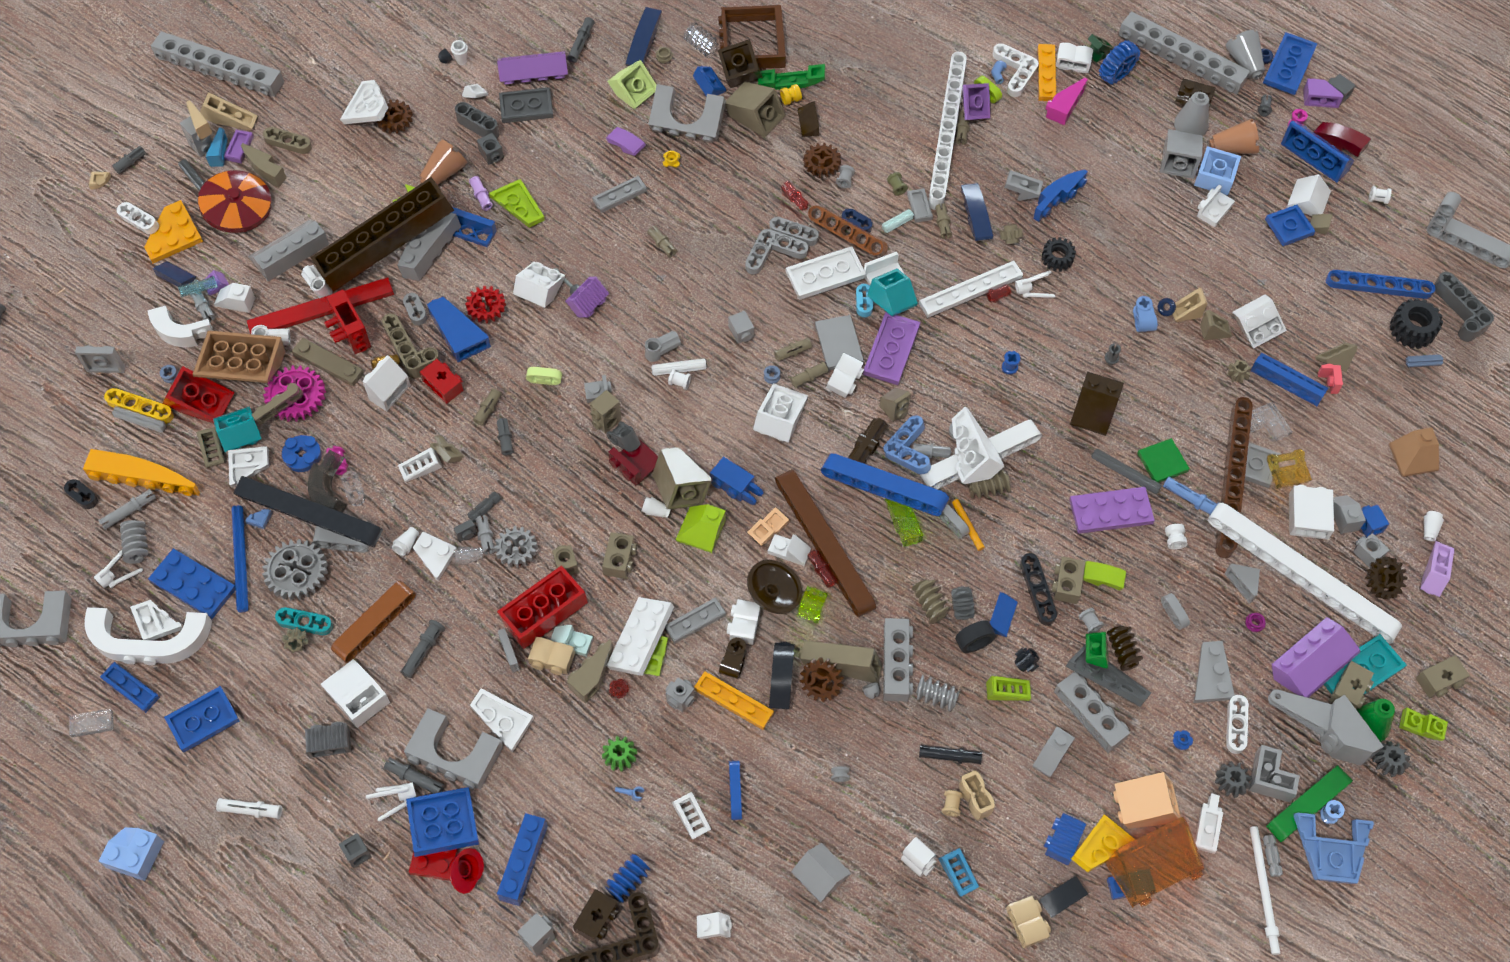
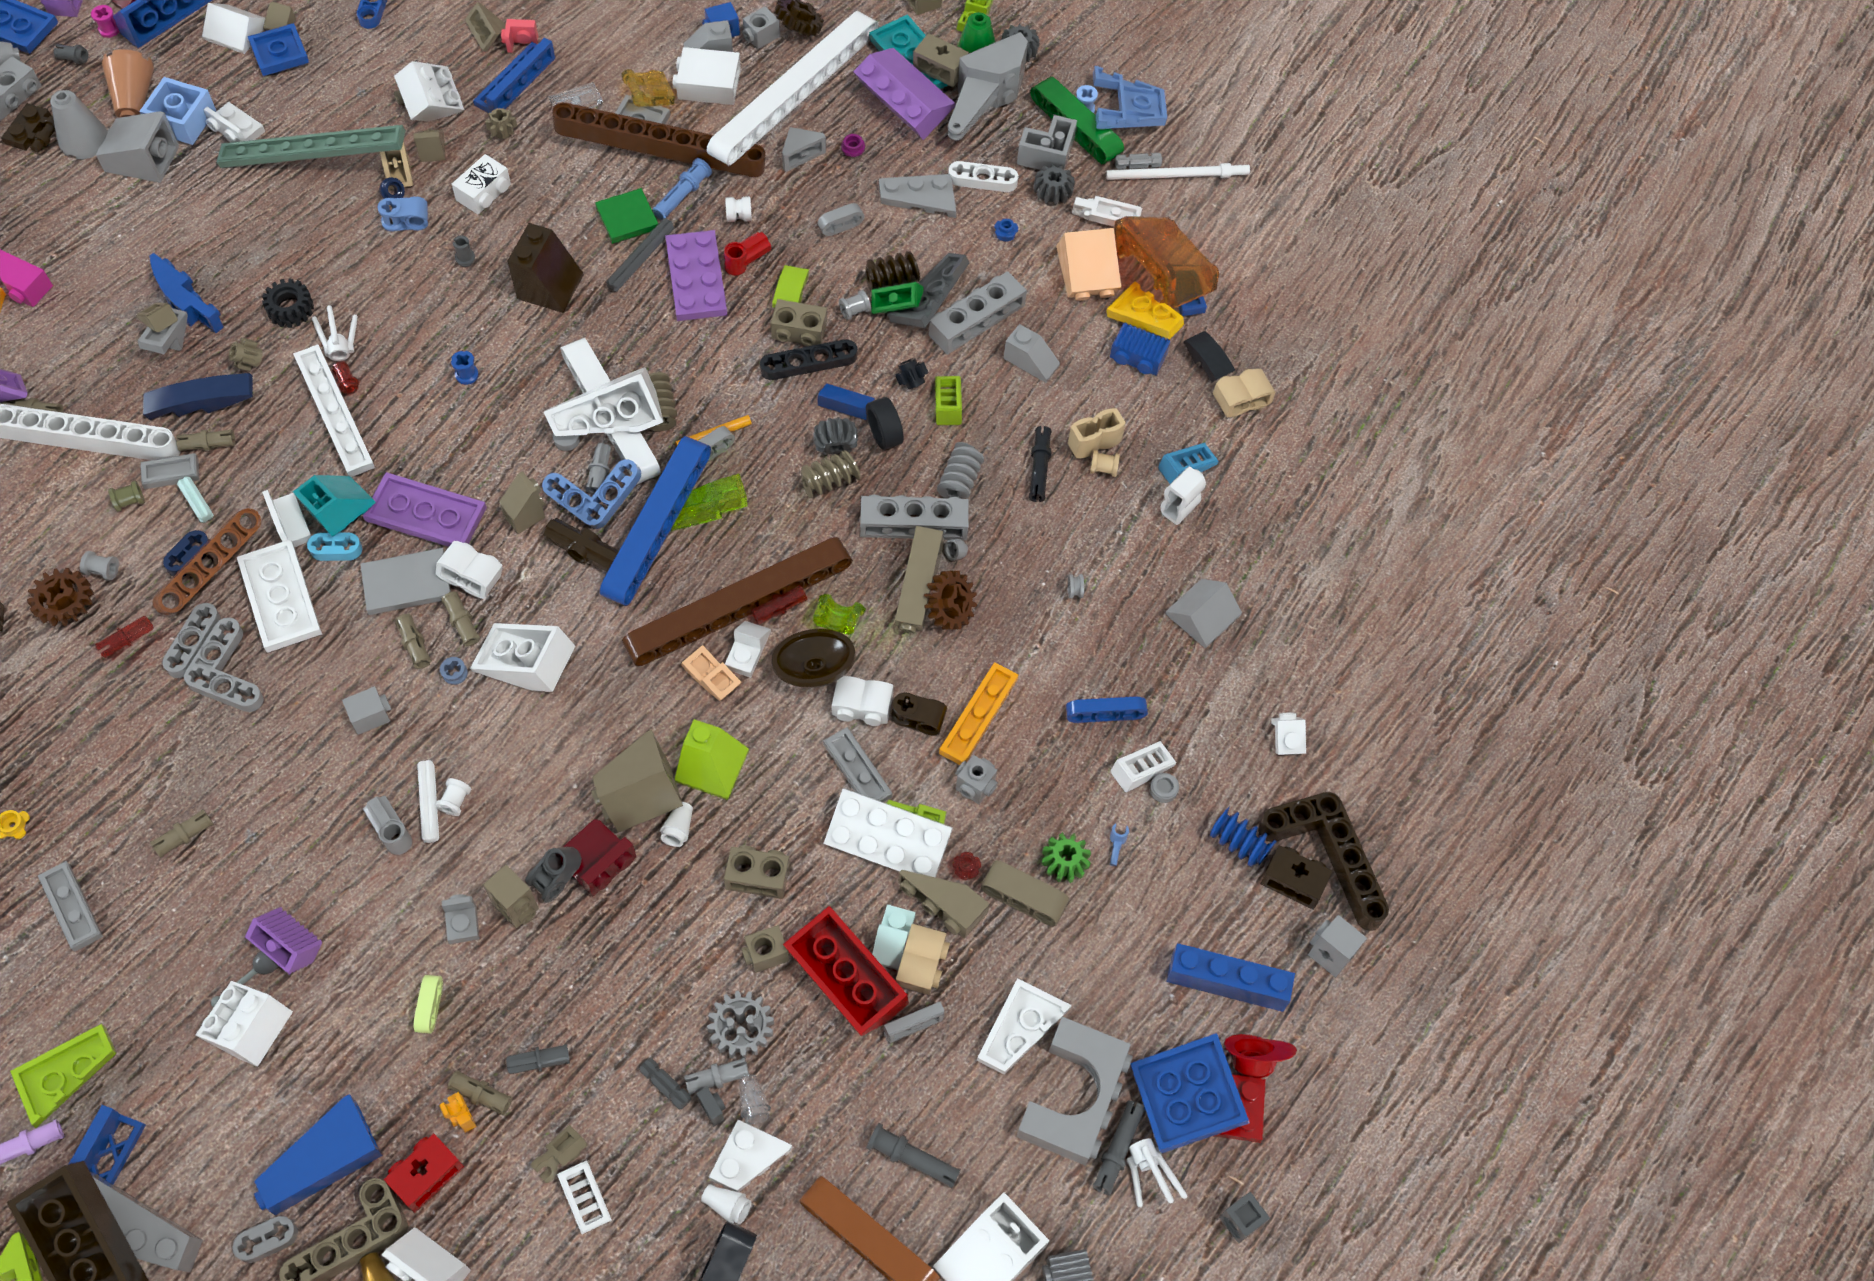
camera: 95 degrees left, 0 degrees up
(475, 394) = (458, 1112): none -> light orange plate
(494, 306) = (256, 1106): red gear -> none
(594, 725) = (1025, 893): none -> dark tan beam
(673, 829) = (1164, 787): none -> light grey tile
(734, 481) = (637, 714): blue hinge -> none
(781, 675) = (942, 644): black arch -> none
(1031, 178) = (157, 316): none -> dark tan slope
(1135, 542) = (741, 254): none -> red piece
(1178, 362) = (481, 184): none -> white brick
(1193, 252) = (311, 146): none -> sand green tile

